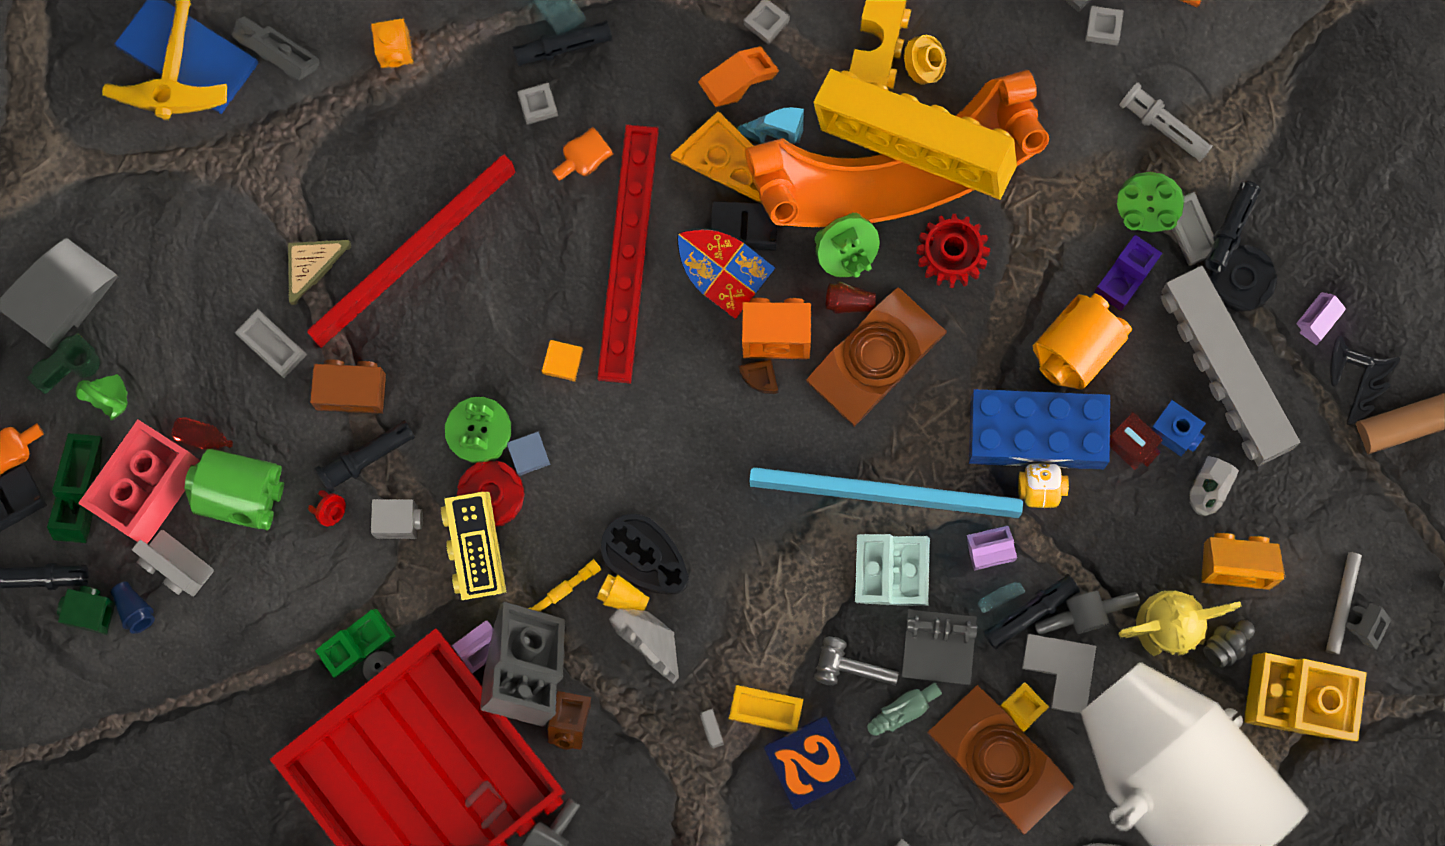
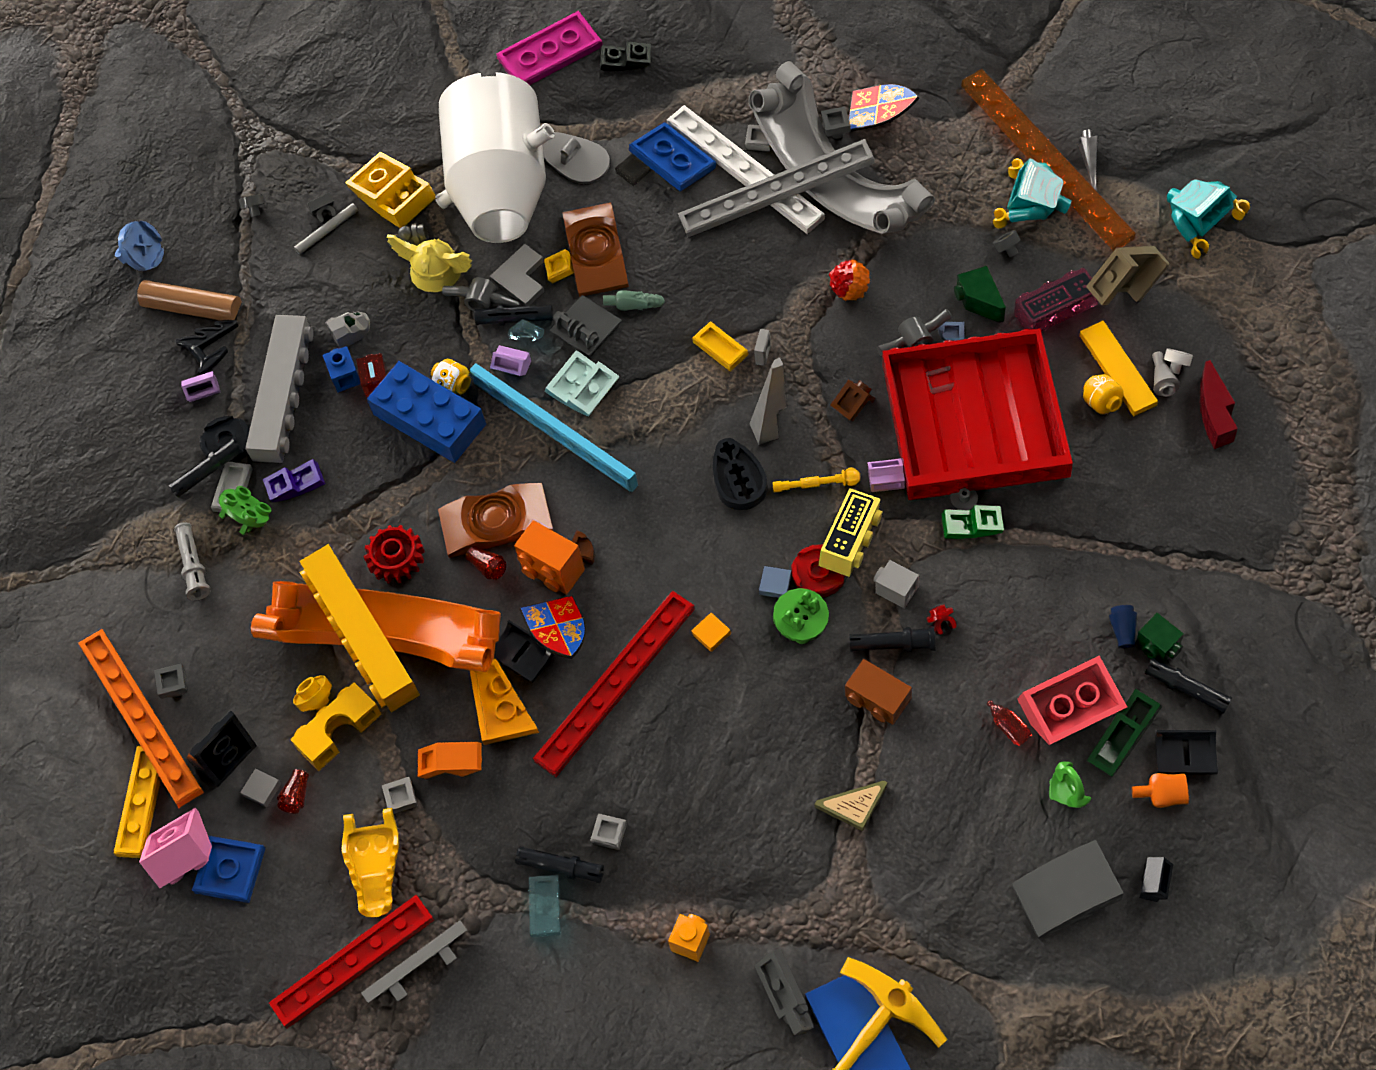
camera: 145 degrees left, 15 degrees down
(52, 370) = (1102, 829): clear green plate -> none
(175, 561) = (1076, 635): light grey bracket -> none
(234, 488) = (1002, 657): bright green cylinder -> none
(270, 343) = (919, 763): light grey tile -> none
(411, 251) = (771, 766): red tile -> none
(524, 665) = (861, 439): dark grey slope -> none
(583, 155) = (600, 768): orange piece -> none
(621, 594) = (769, 456): yellow cone -> none
(781, 123) = (449, 699): medium azure slope -> none
(809, 762) = (713, 300): tile -> none
(832, 661) = (656, 350): flat silver piece -> none
(840, 236) = (461, 588): bright green plate -> none
(1080, 342) = (359, 444): light orange cylinder -> none
(1104, 25) = (174, 652): light grey tile -> none
(1242, 562) = (366, 269): light orange slope -> none

